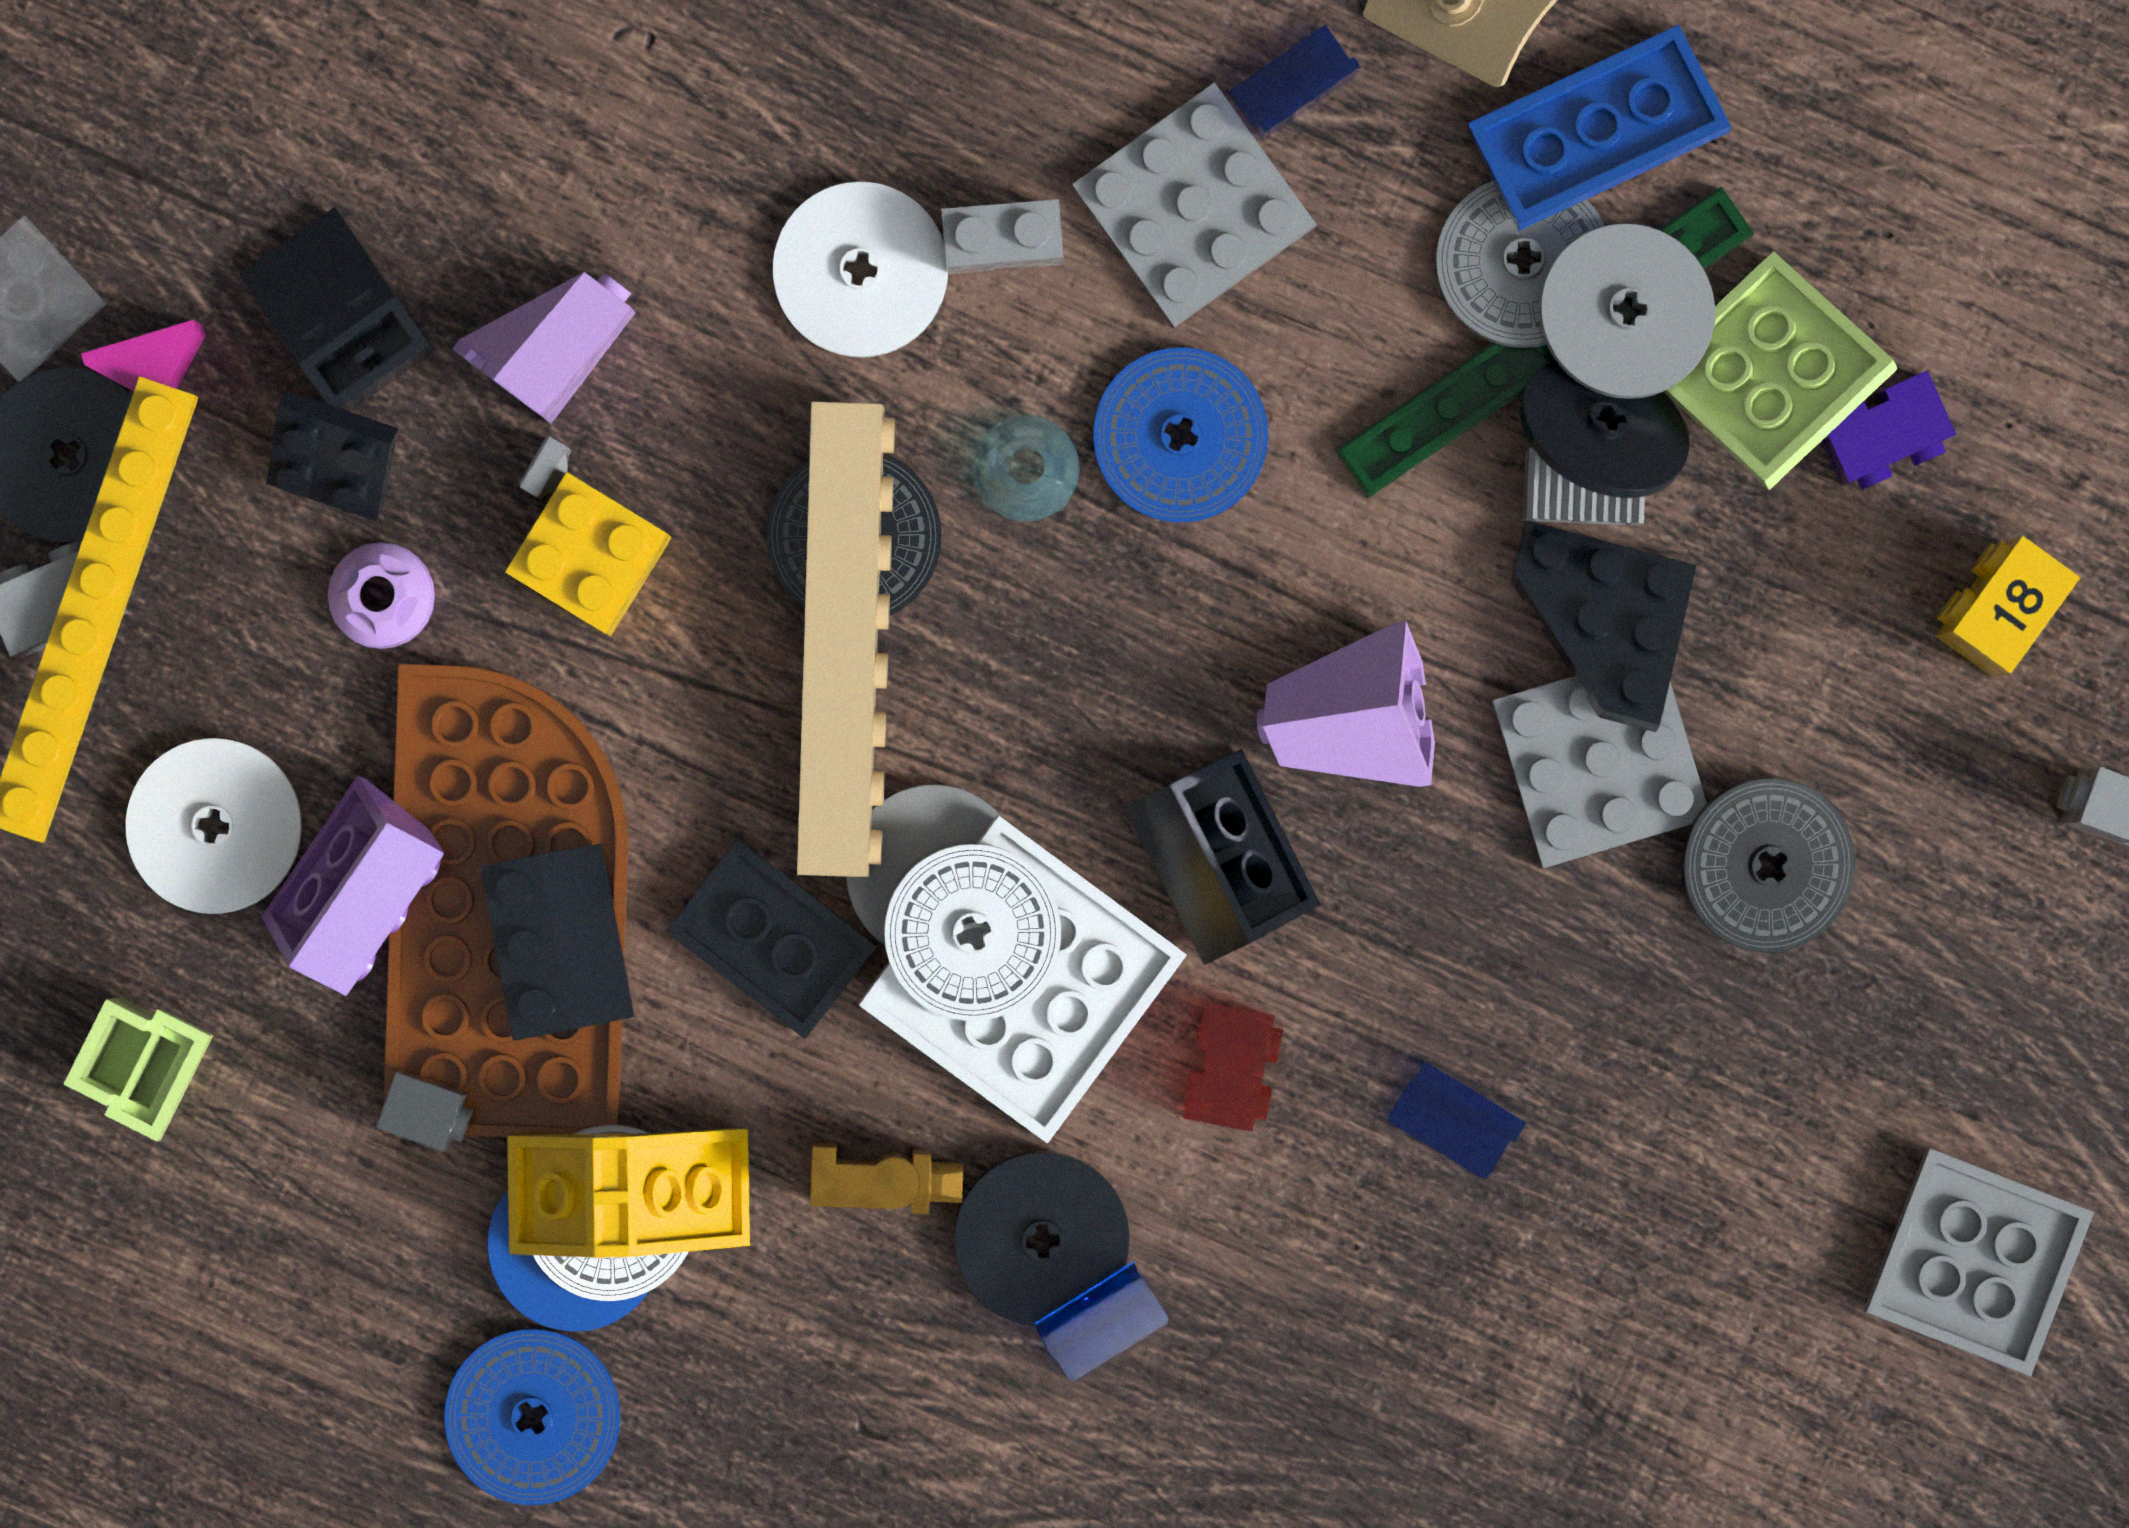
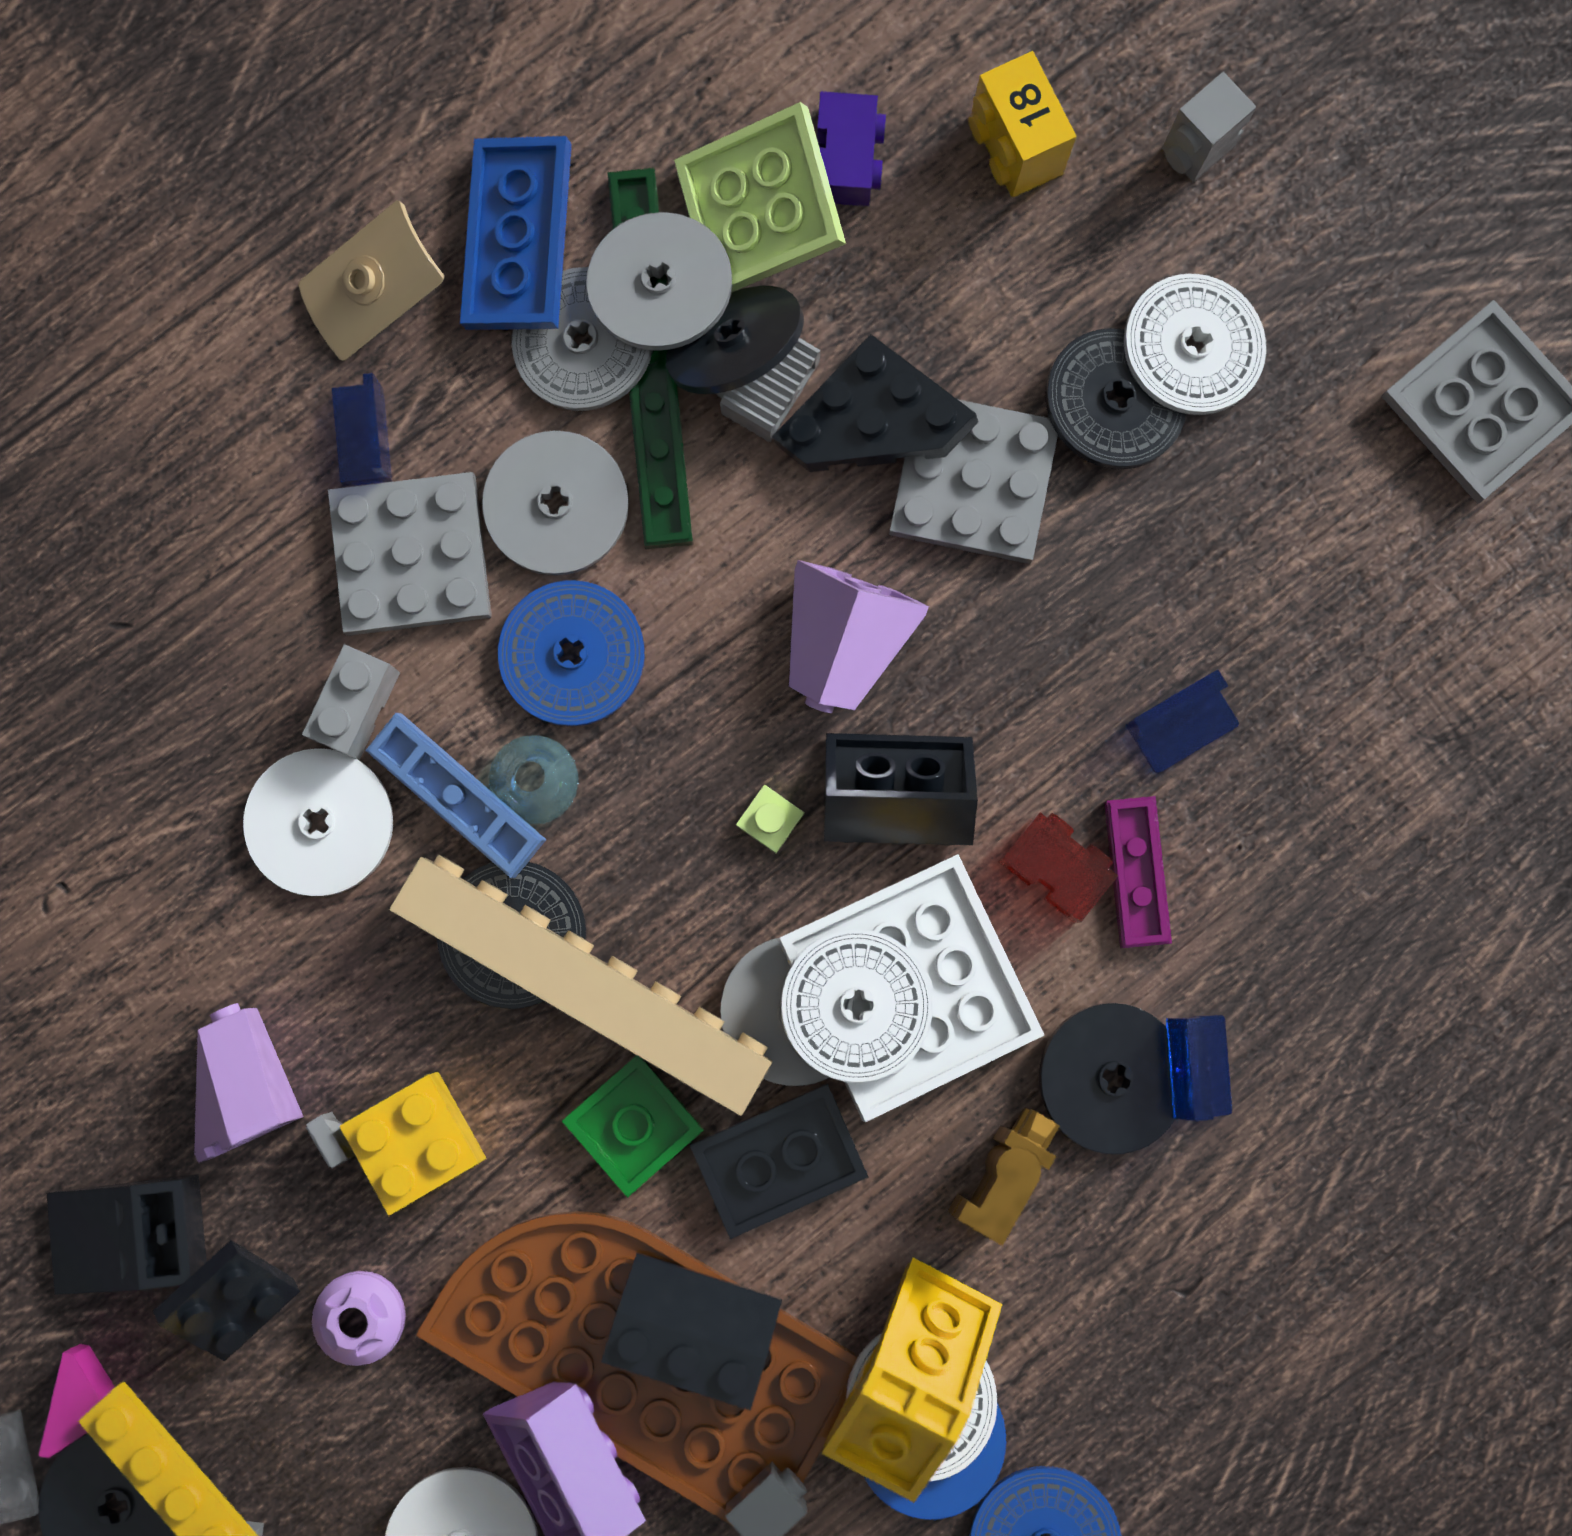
camera: 60 degrees left, 5 degrees down
(726, 769) = (633, 1125): none -> green plate
(965, 398) = (455, 795): none -> medium blue plate
(1119, 739) = (770, 819): none -> yellowish green plate
(1271, 1153) = (1139, 865): none -> magenta tile
(1353, 288) = (532, 473): none -> light grey piece
(1829, 917) = (1175, 372): none -> white piece

